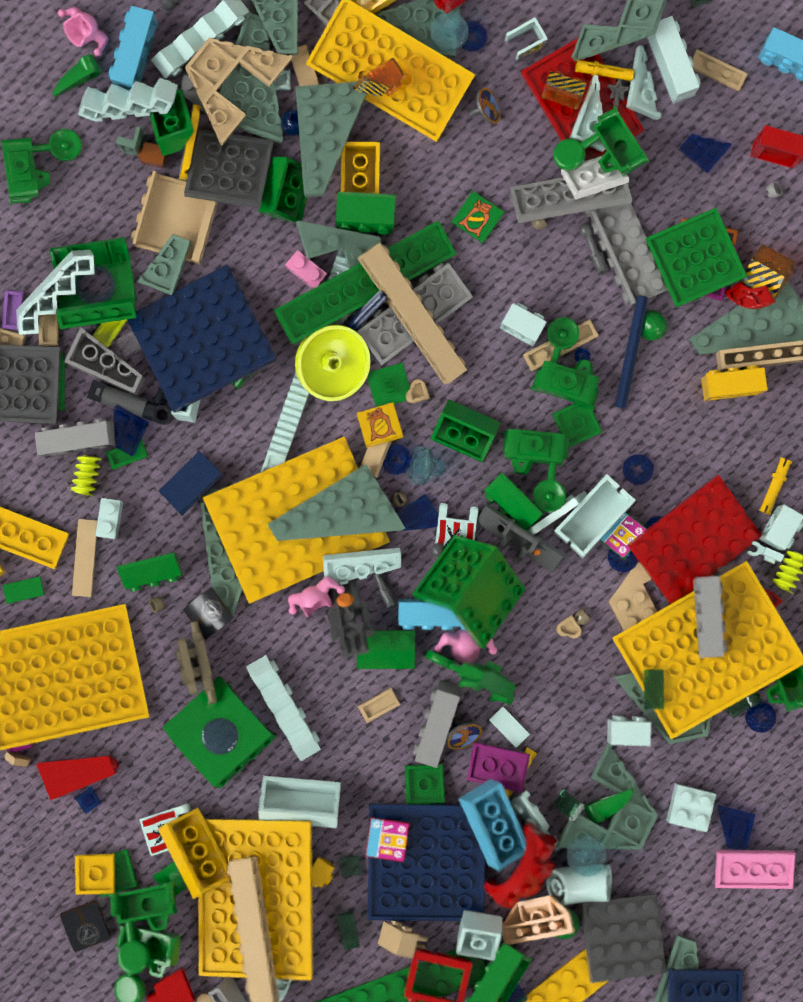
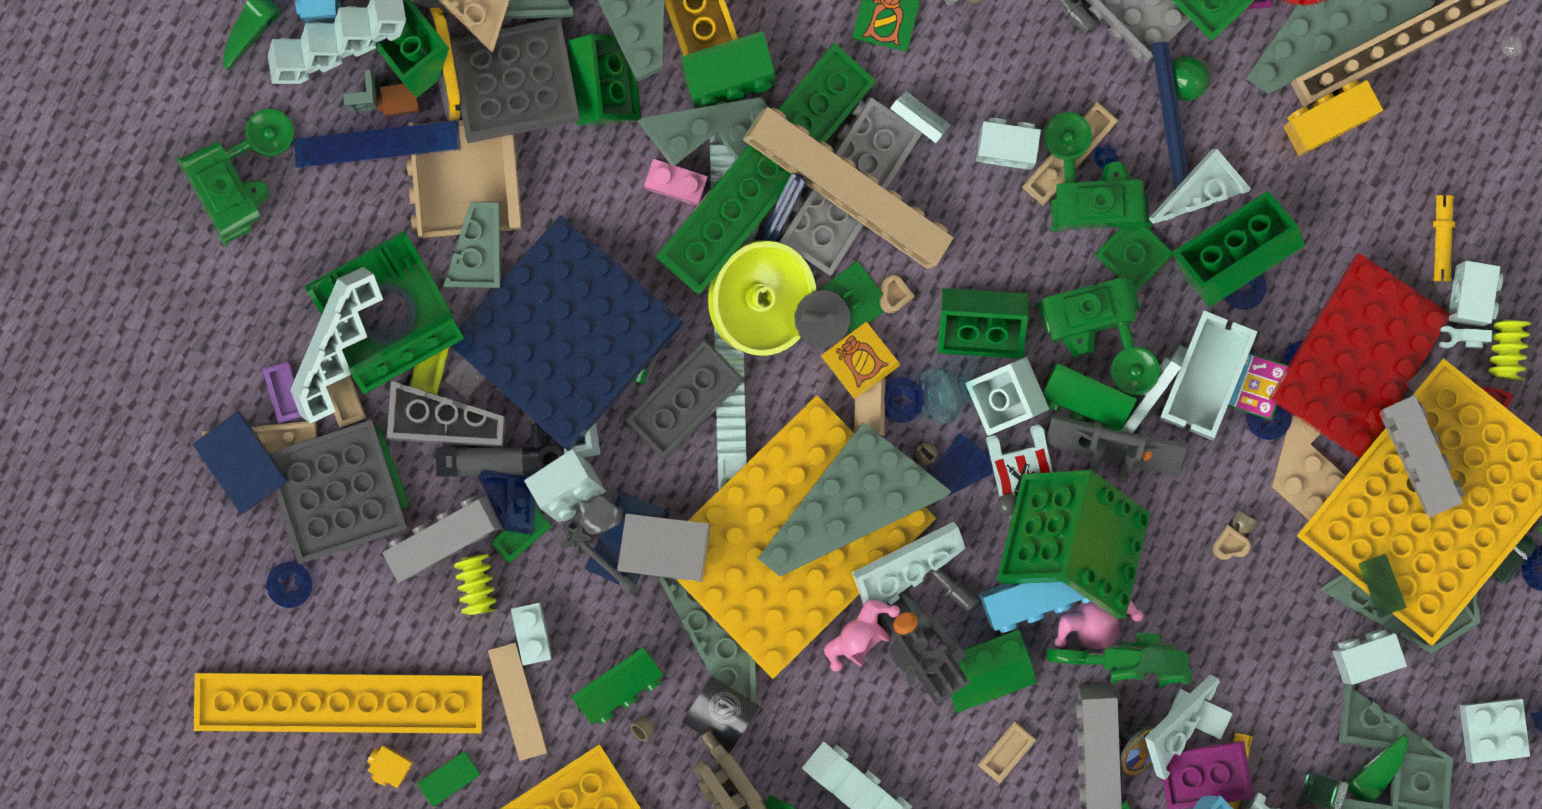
camera: 20 degrees left, 0 degrees up
(128, 177) = (377, 144): none -> clear blue tile
(161, 471) = (579, 540): none -> dark grey piece
(164, 434) = (564, 485): none -> light aqua brick
(179, 459) = (600, 514): none -> dark grey piece
(211, 495) = (664, 547): none -> light grey tile
(260, 408) = (685, 399): none -> dark grey tile
(366, 390) = (822, 318): none -> dark grey shield
(463, 481) = (1007, 396): none -> light aqua brick
(475, 286) = (920, 116): none -> light aqua plate
(490, 730) = (1176, 728): none -> light aqua wing
(638, 396) = (1207, 183): none -> light aqua wing
(643, 443) = (1238, 248): none -> green brick

